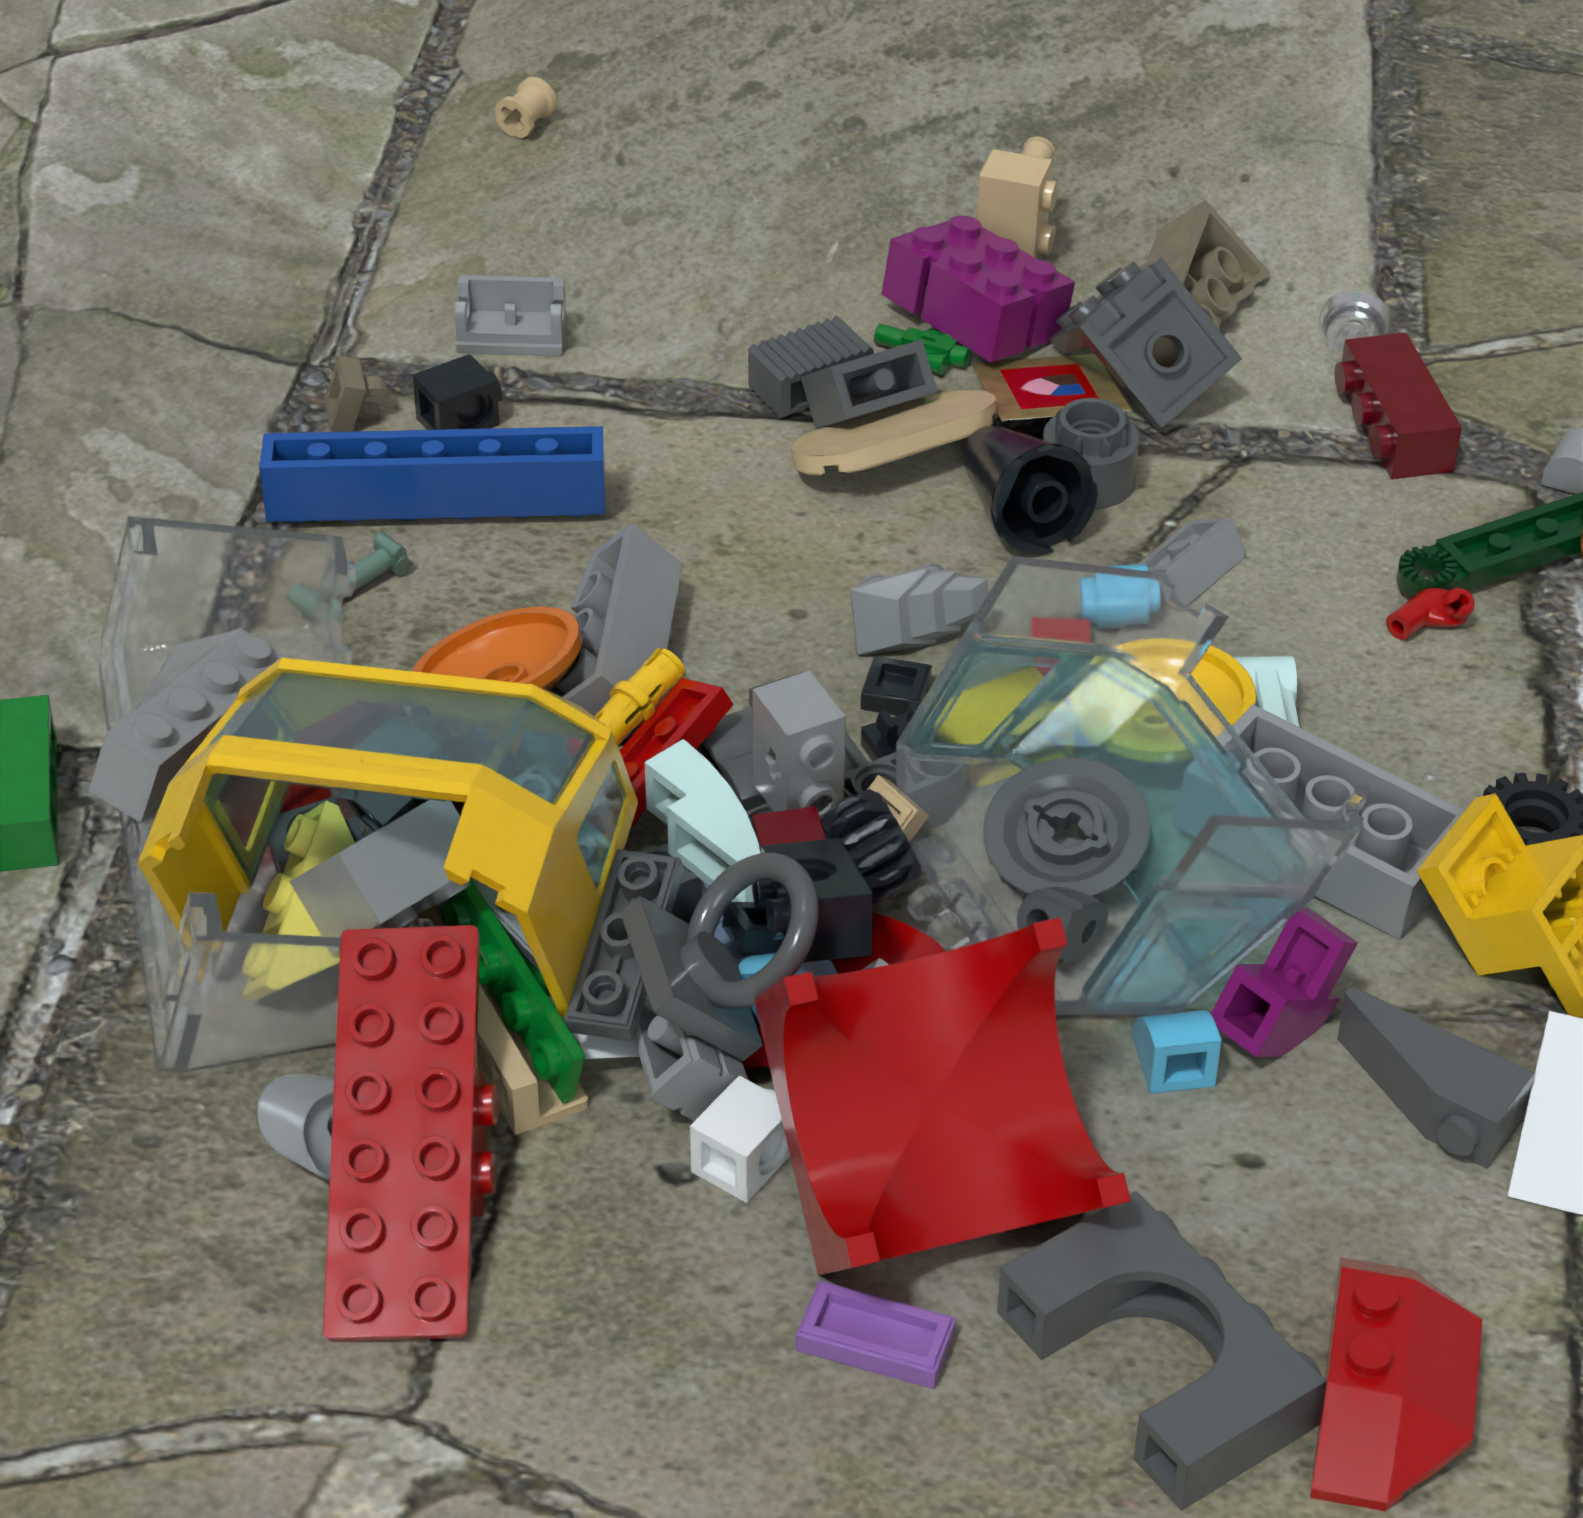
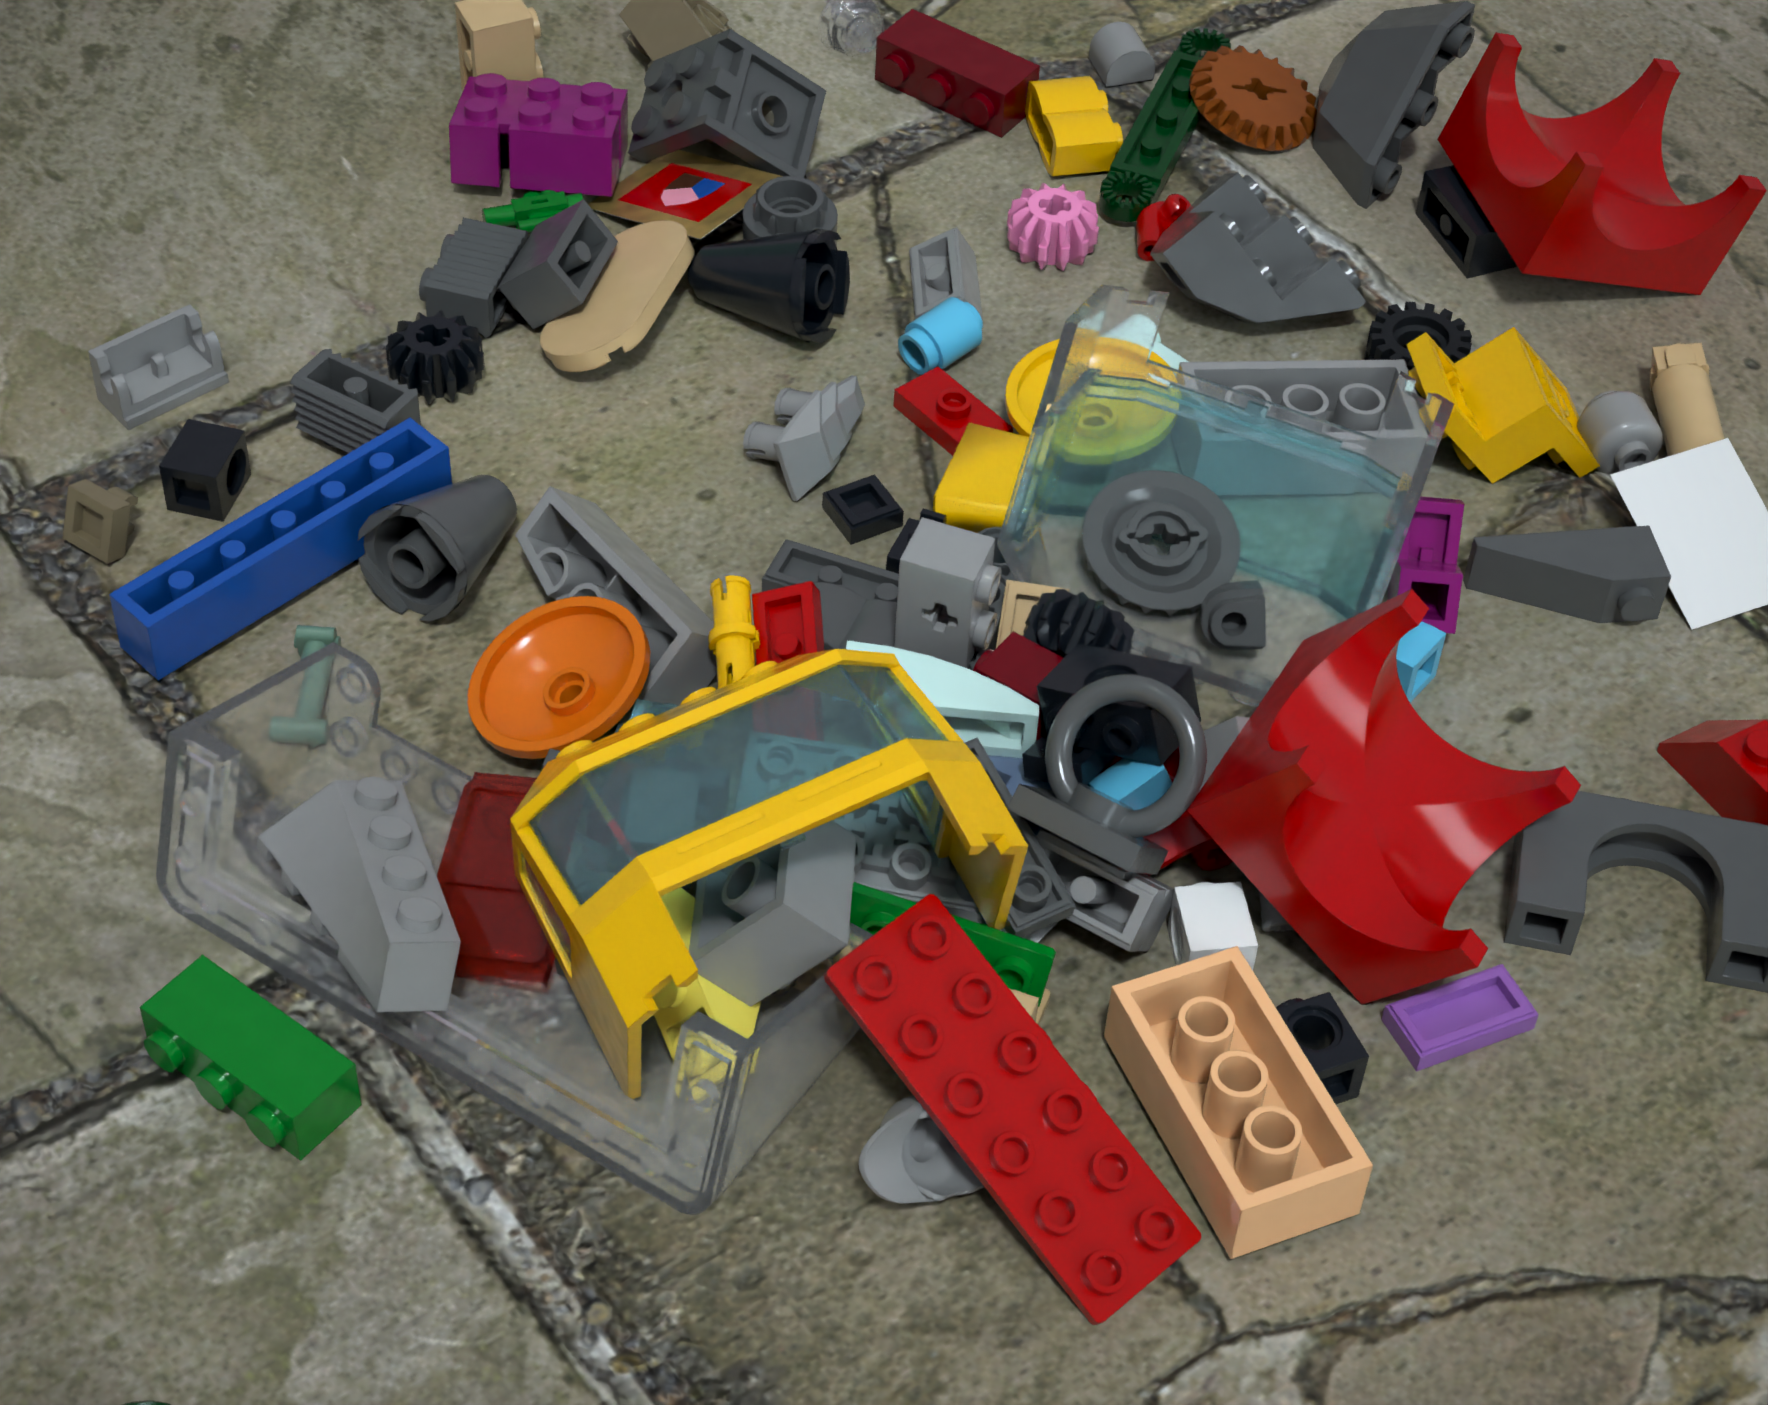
camera: 45 degrees left, 5 degrees up
(539, 526) = (435, 544): none -> dark grey cone
(589, 1253) = (1236, 1102): none -> light nougat brick
(595, 397) = (348, 402): none -> dark grey brick
(707, 407) = (436, 356): none -> black gear
(707, 1269) = (1327, 1043): none -> black brick
(1323, 561) = (1052, 226): none -> bright pink gear
(1448, 491) = (1072, 125): none -> yellow brick
(1459, 669) = (1251, 262): none -> dark grey brick

